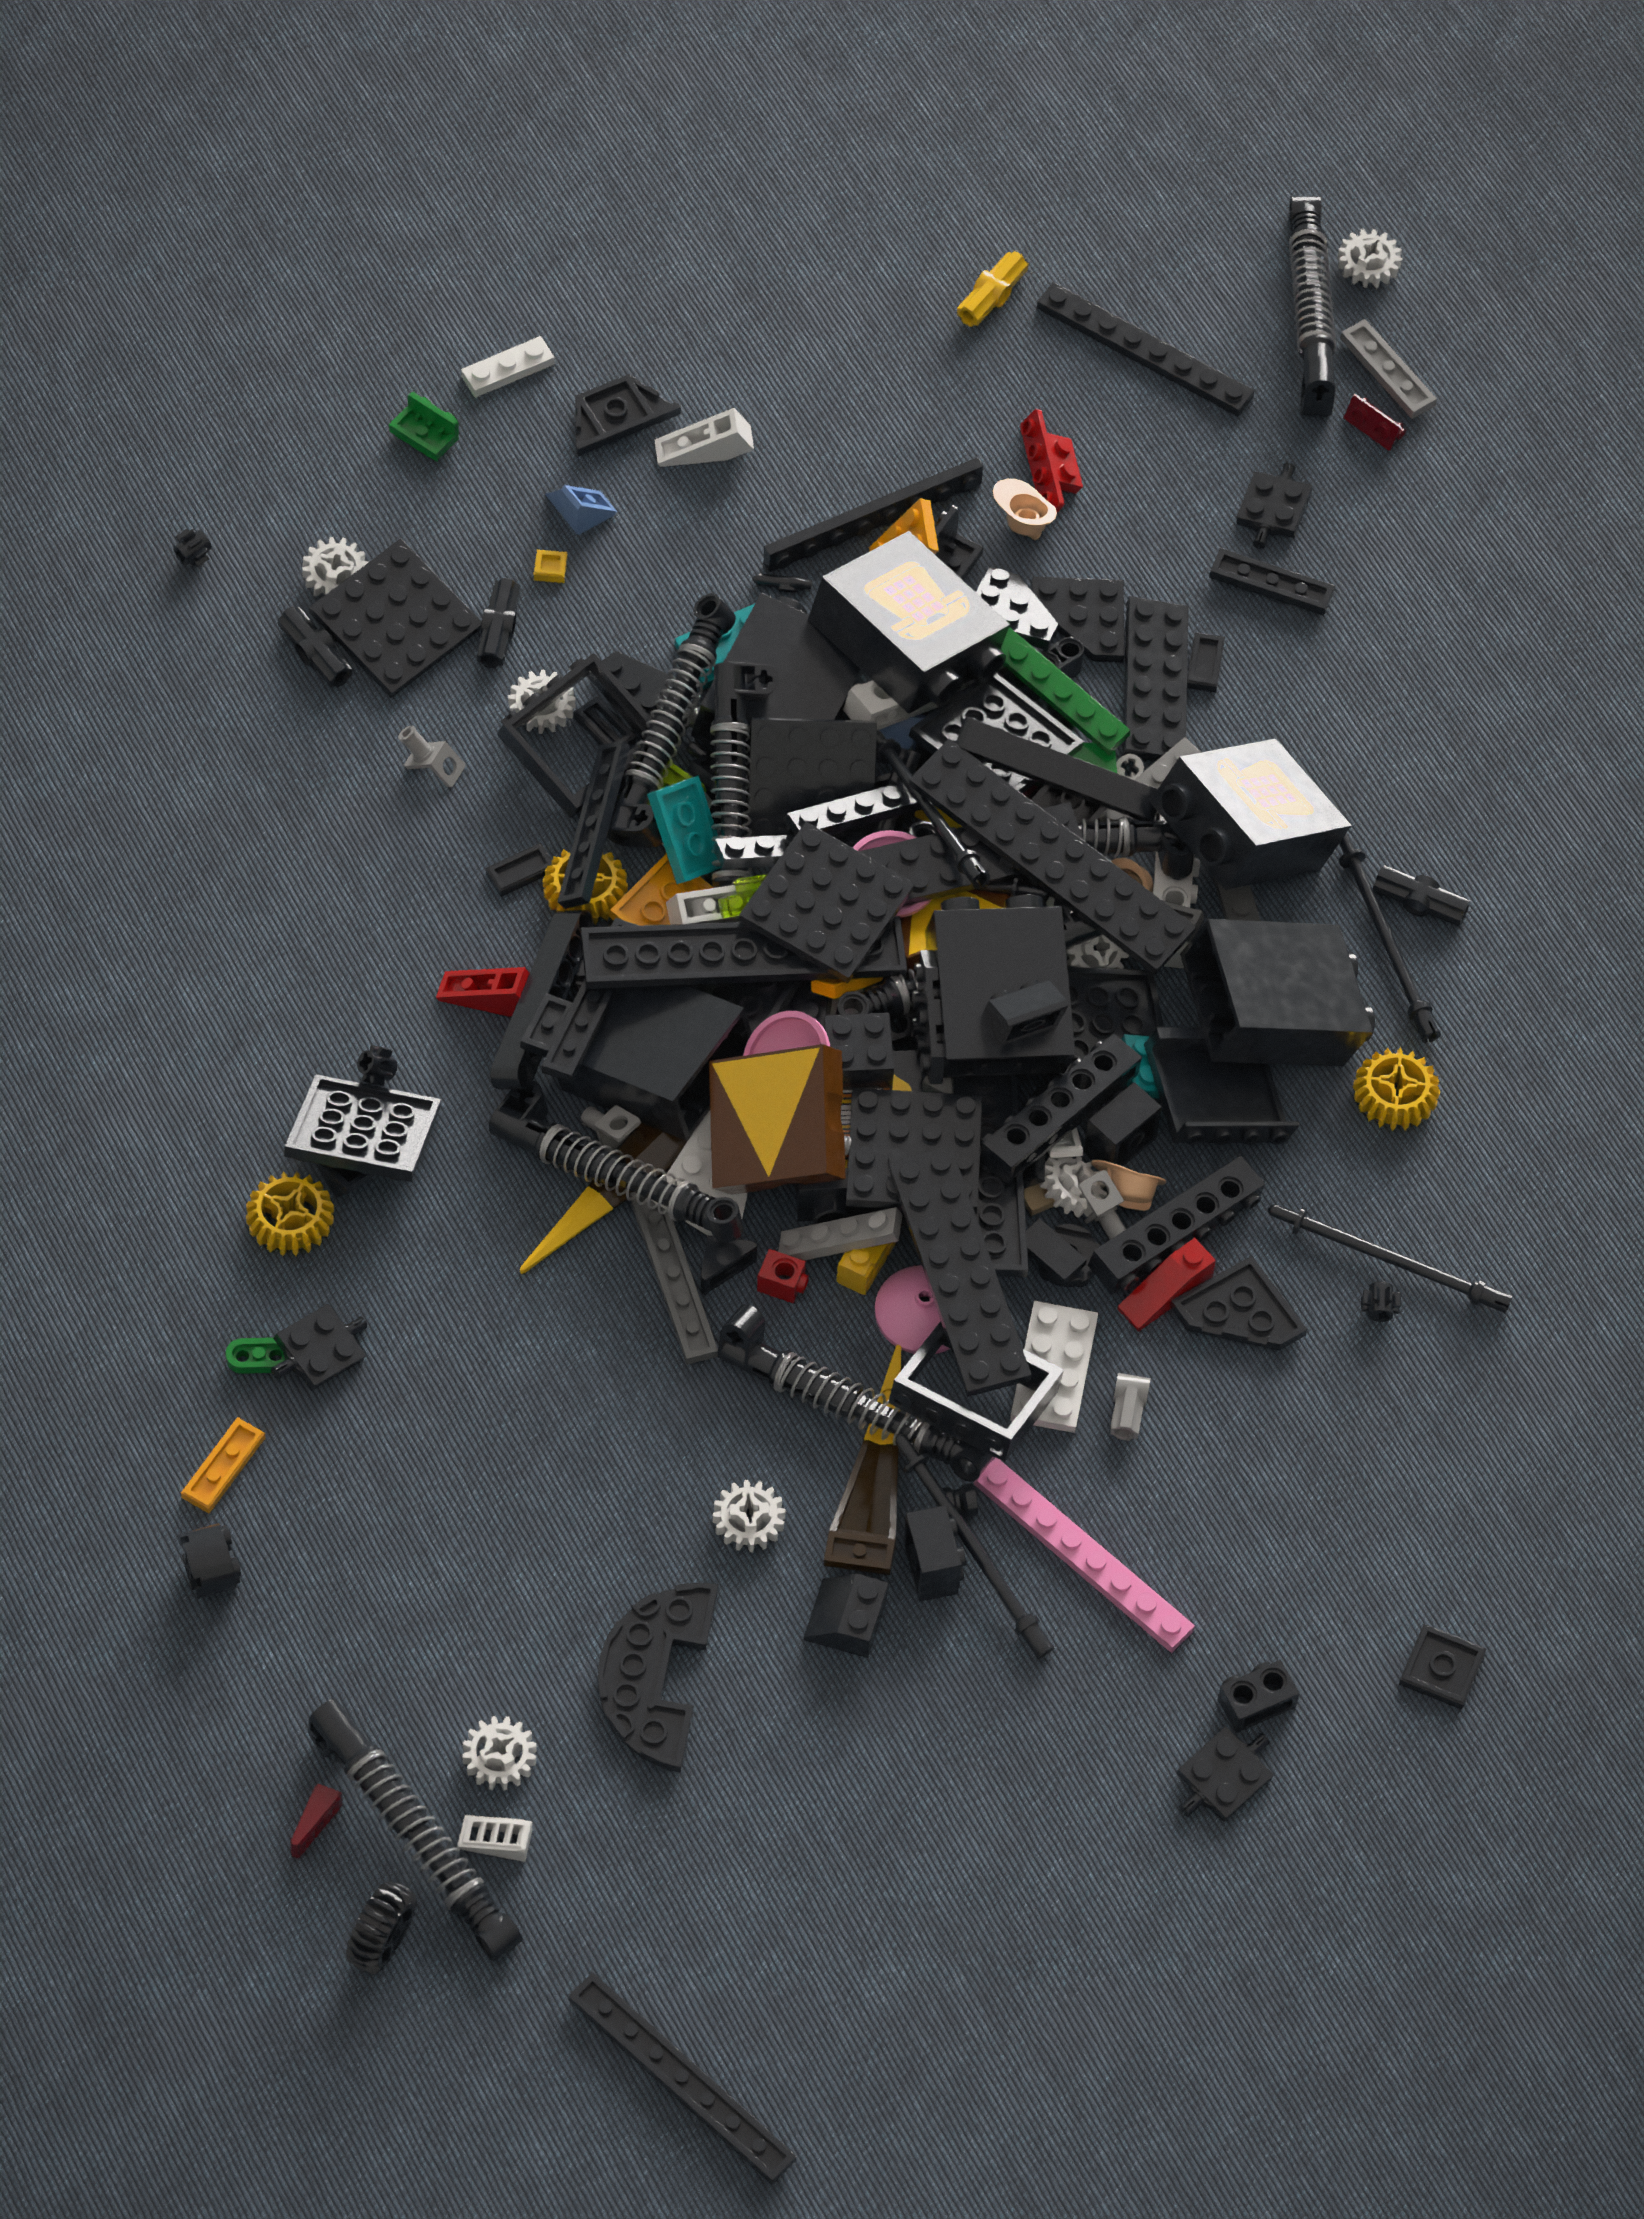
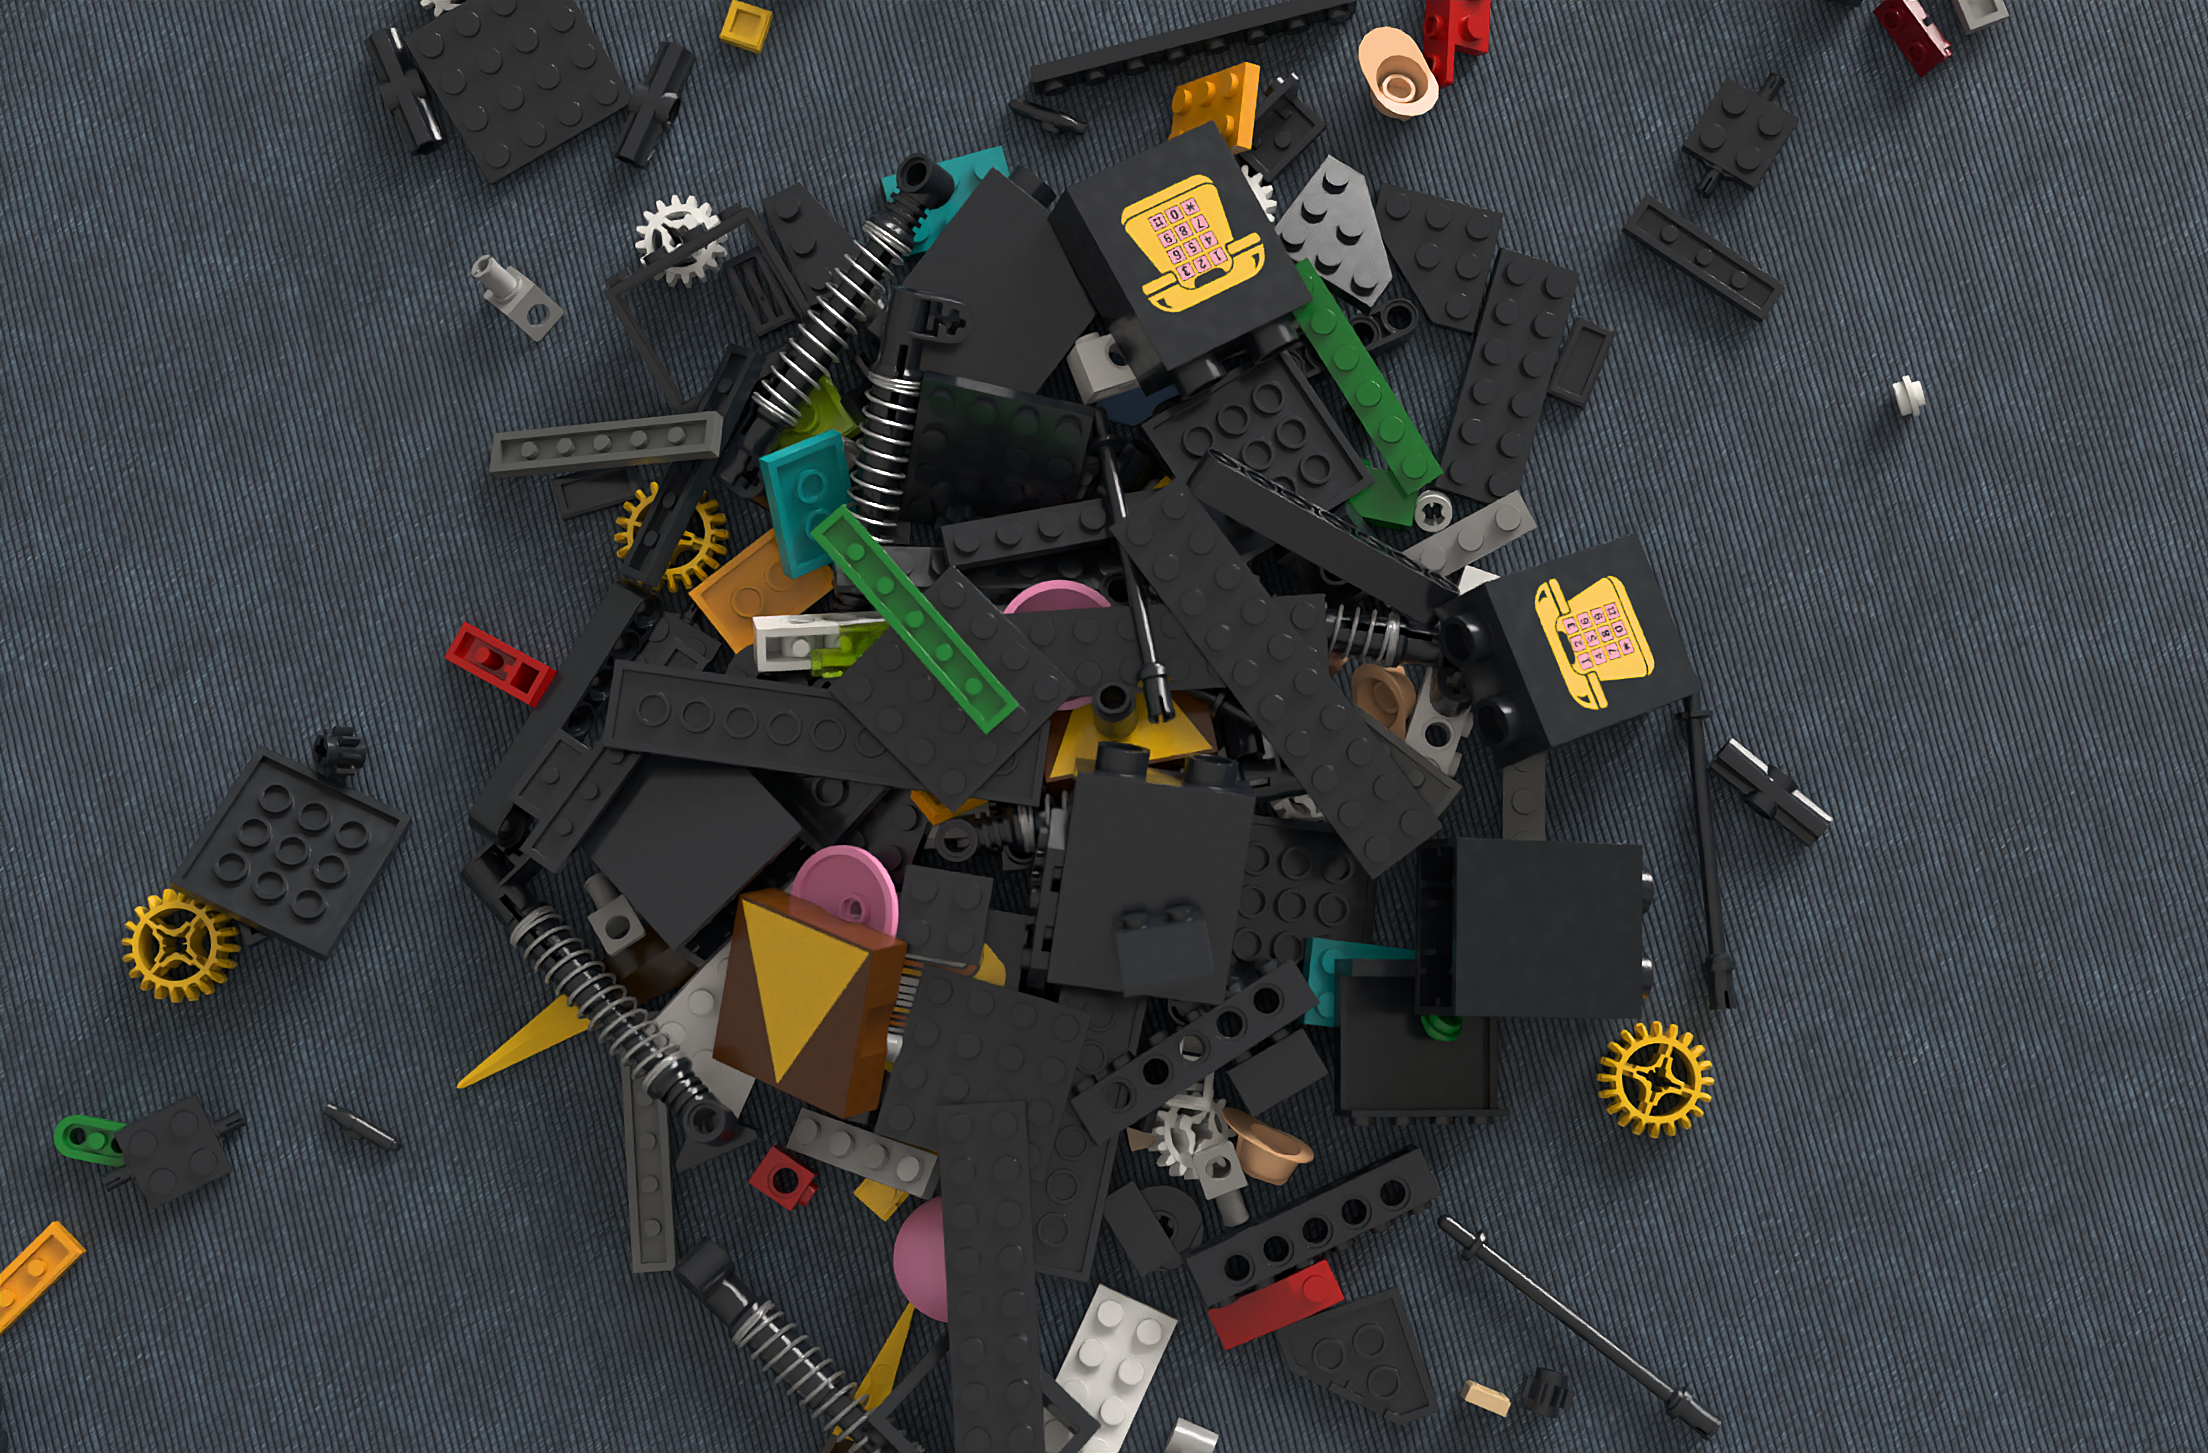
camera: 20 degrees right, 25 degrees up
(453, 1312) = (360, 1128): none -> black piece
(526, 825) = (607, 444): none -> dark grey plate
(791, 851) = (914, 619): none -> green plate
(940, 889) = (1114, 710): none -> brick
(1232, 1073) = (1442, 1027): none -> green plate
(1337, 1315) = (1485, 1397): none -> tan tile
(1441, 637) = (1909, 396): none -> white plate

